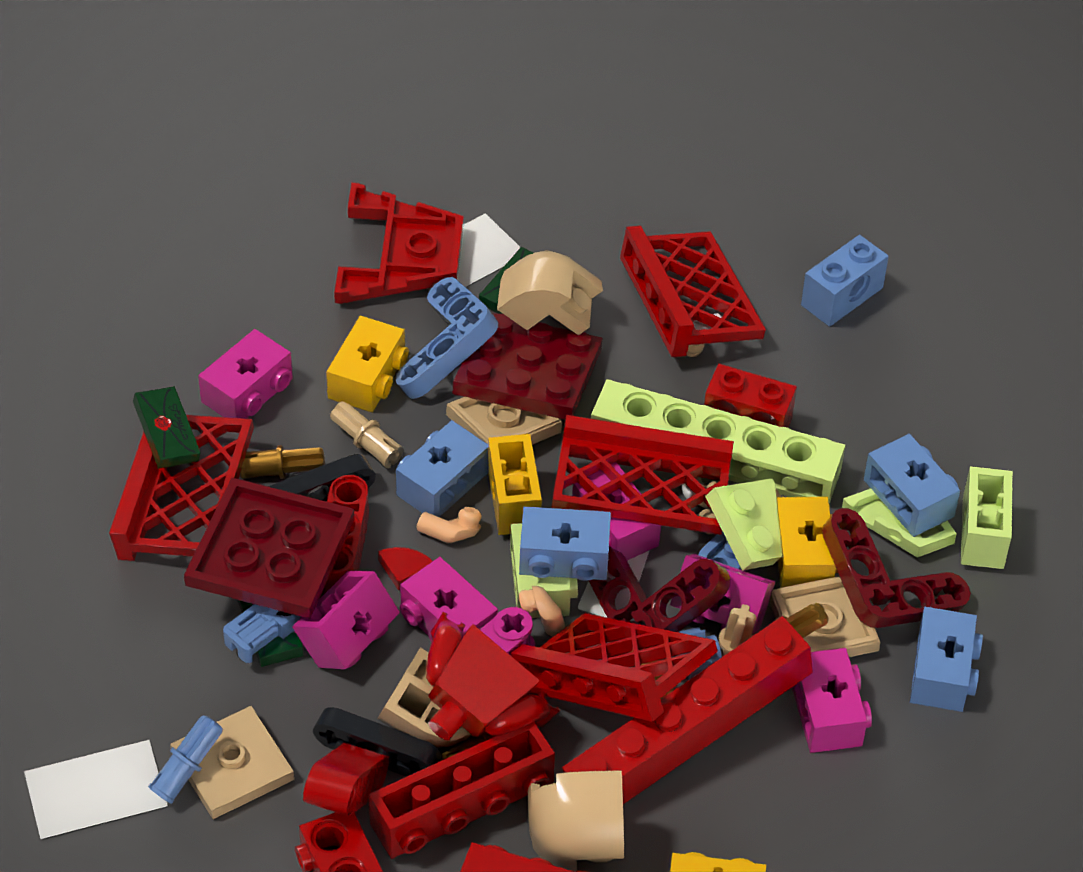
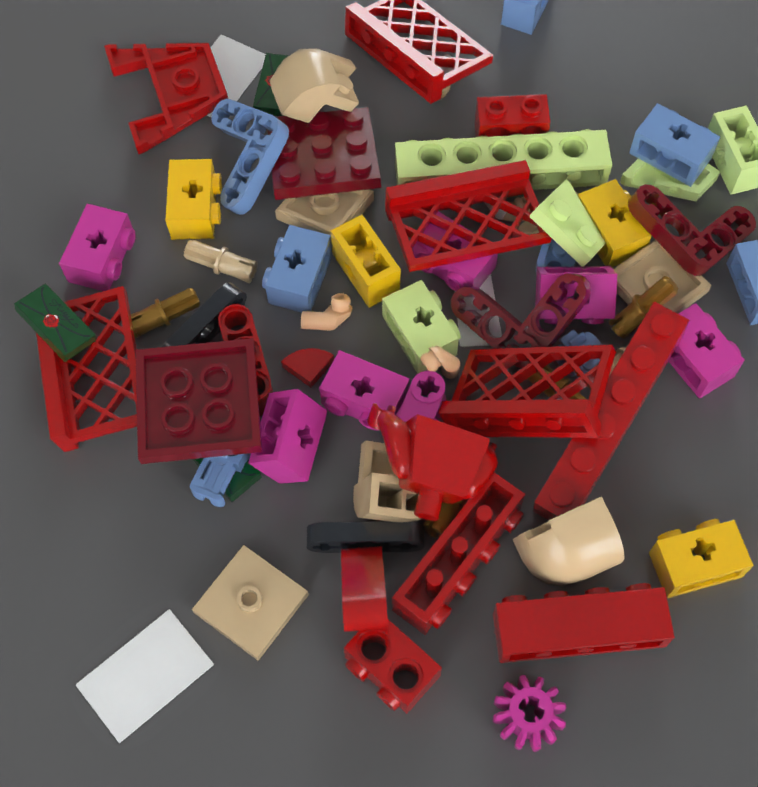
camera: 20 degrees left, 15 degrees up
(186, 759) = (215, 624): medium blue axle -> none
(564, 543) = (440, 301): medium blue brick -> none
(738, 629) = (611, 328): tan axle -> none

